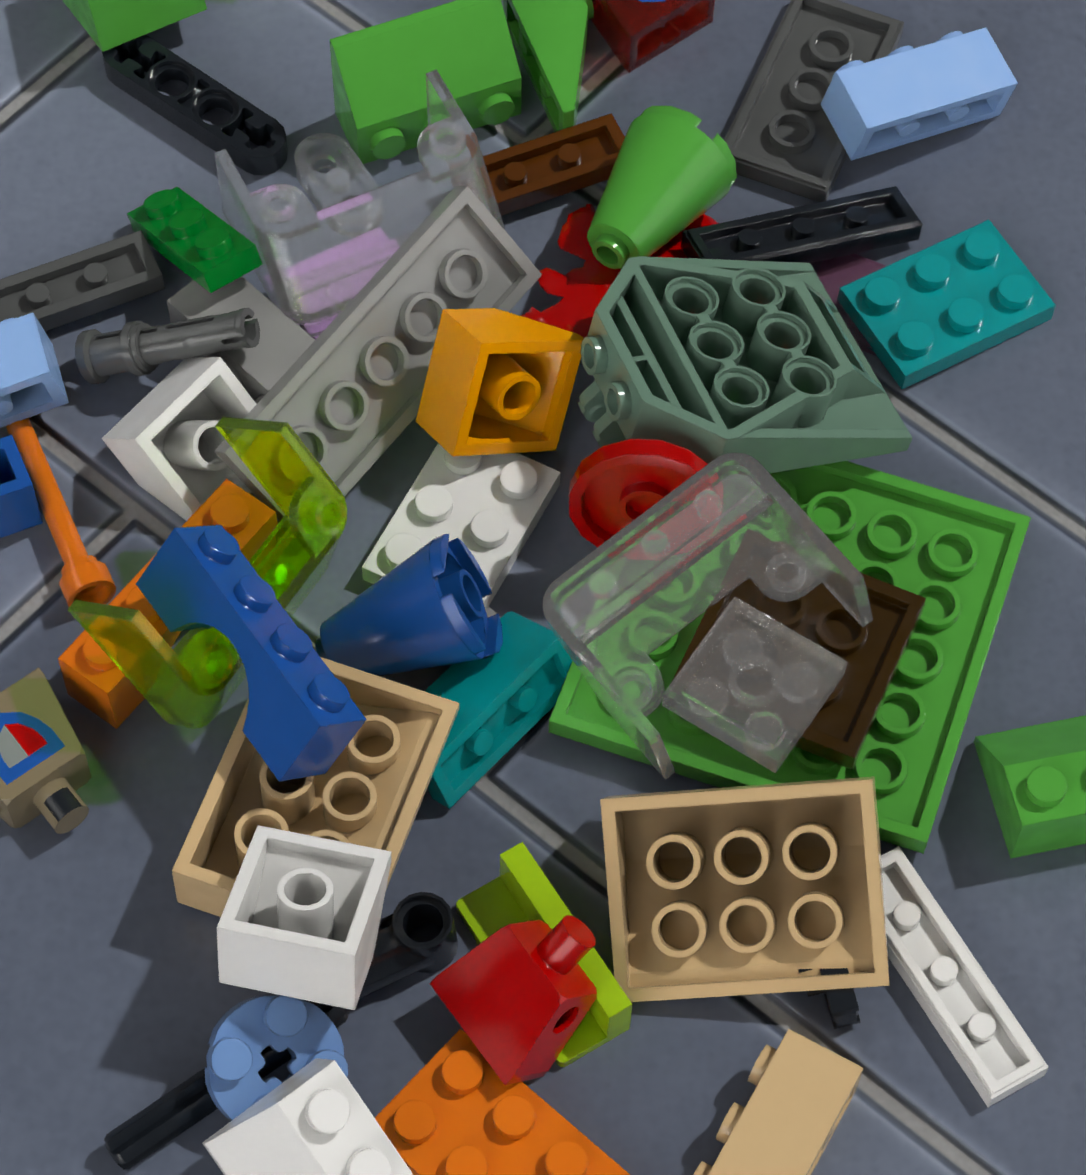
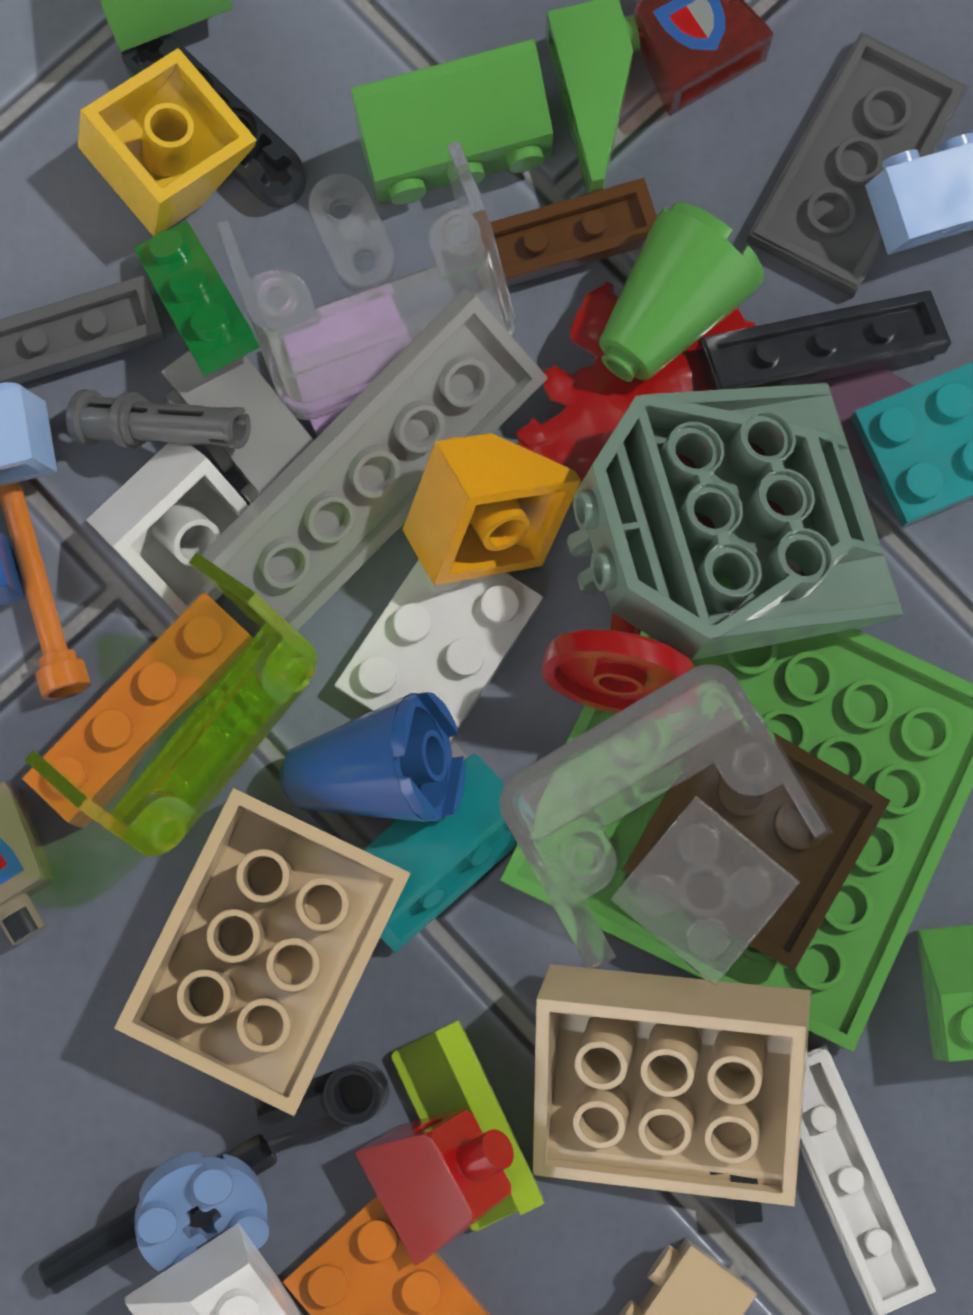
camera: 10 degrees right, 20 degrees up
(149, 117) = (163, 141): none -> yellow slope
(296, 706) = (241, 878): blue arch -> none
(303, 917) = (233, 1102): white slope -> none

